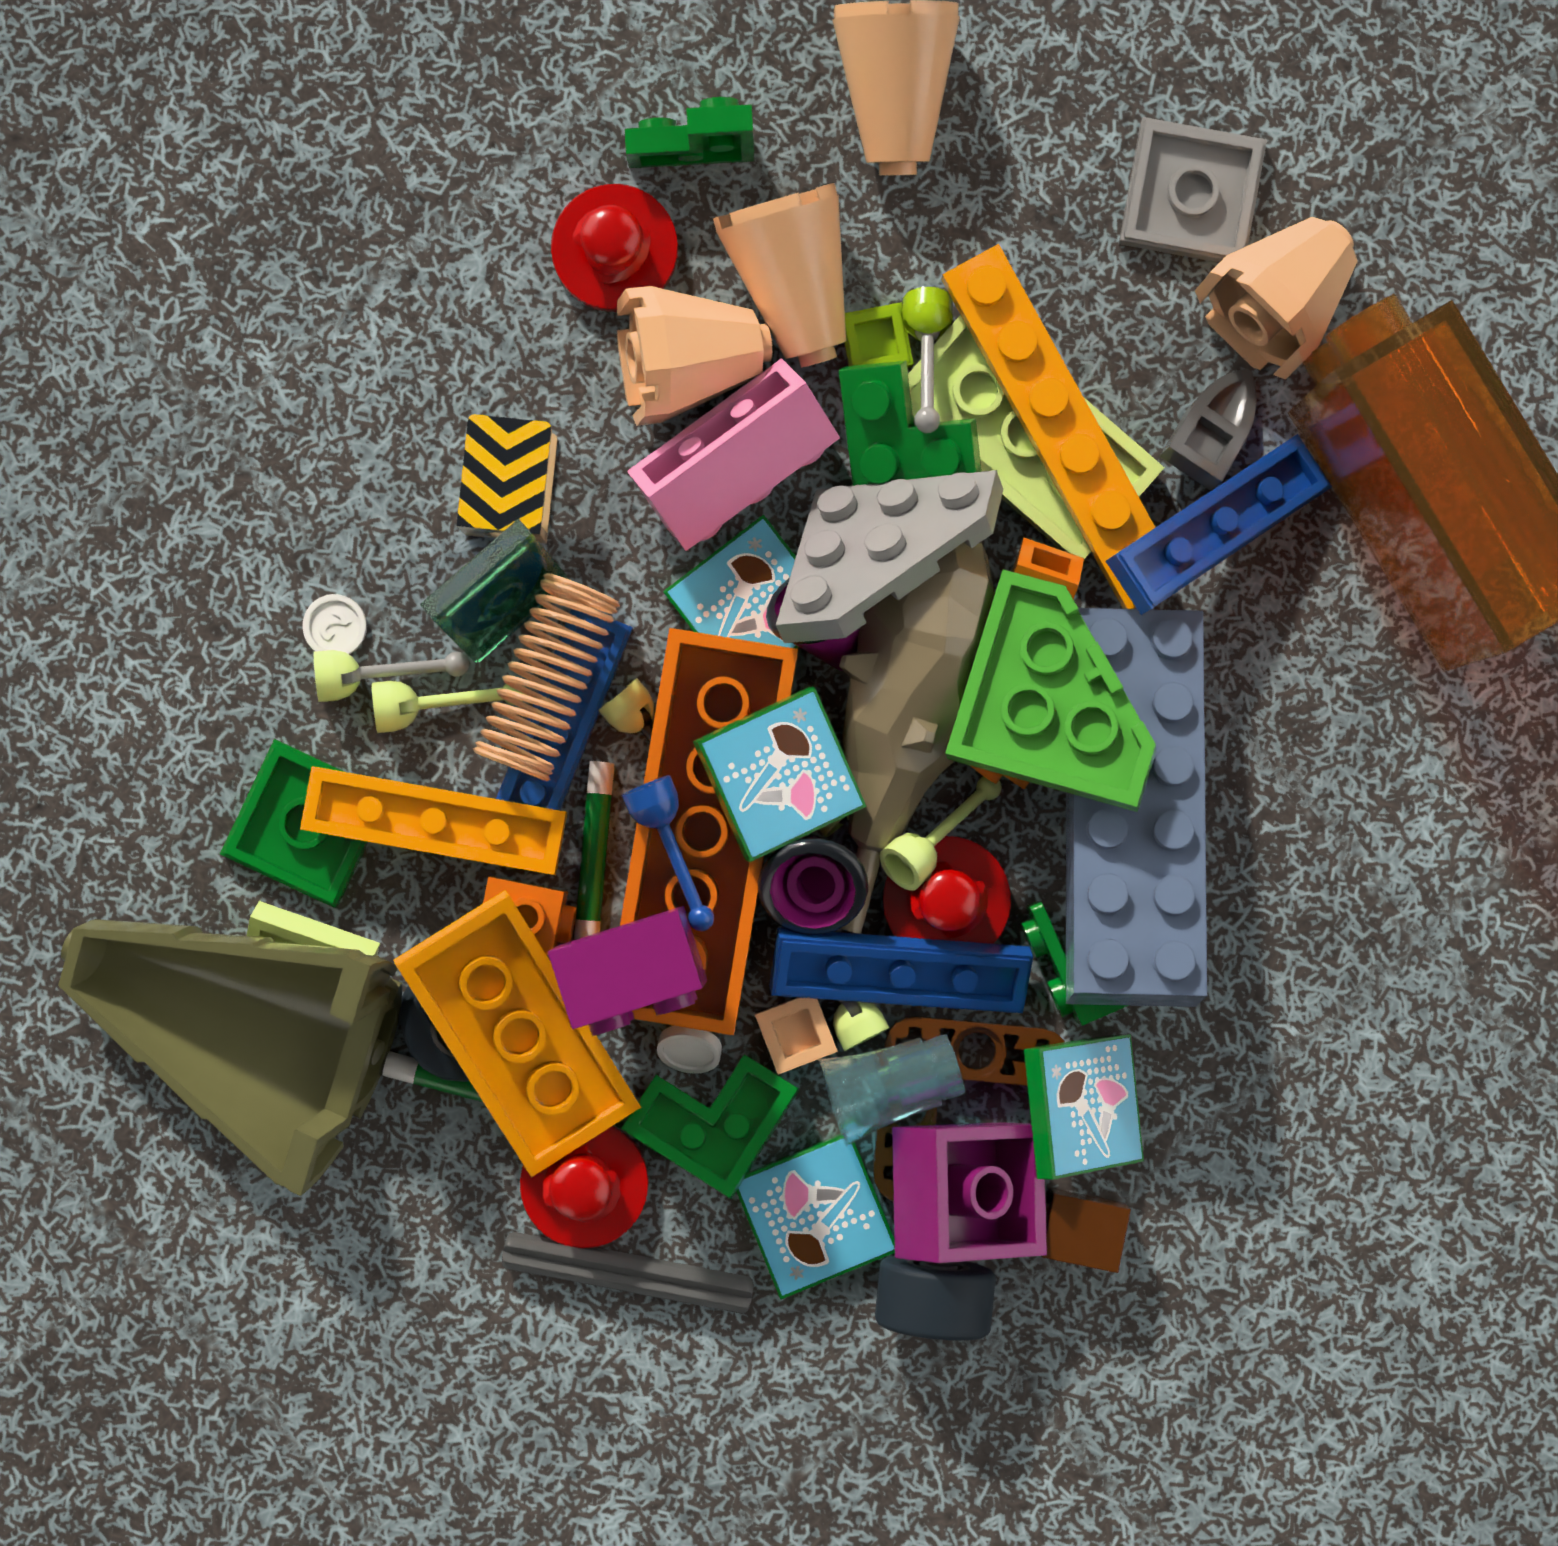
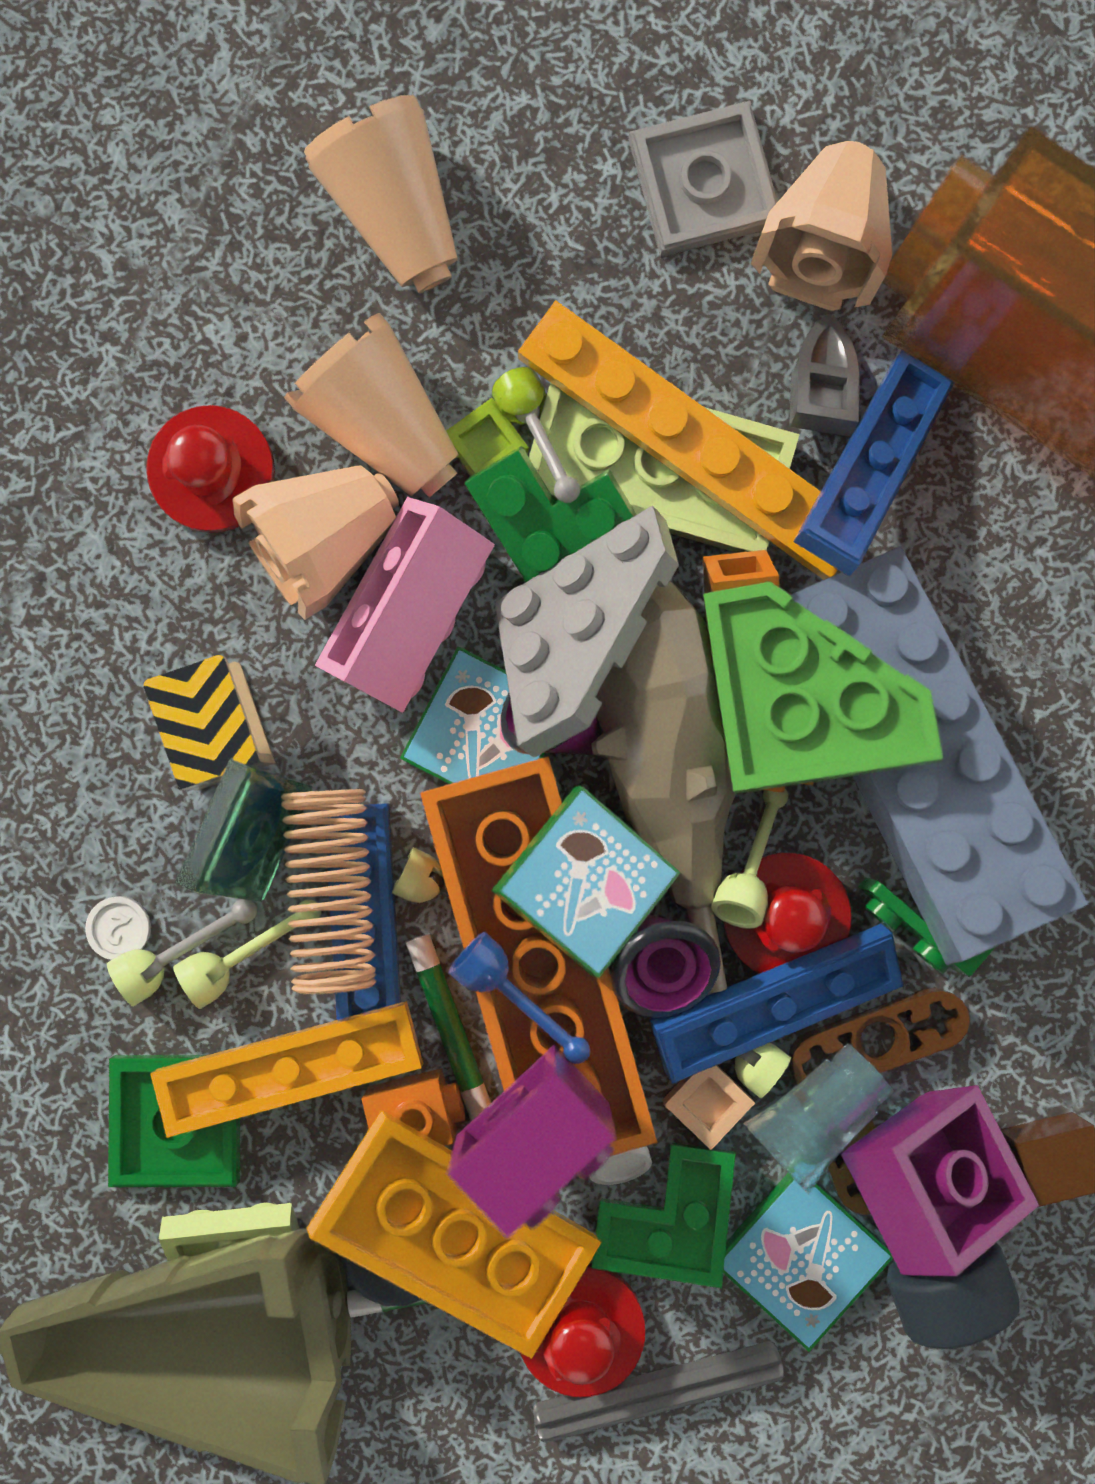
camera: 30 degrees left, 0 degrees up
(713, 135) = (250, 325): green plate -> none
(1083, 1106) = (1002, 1049): tile -> none

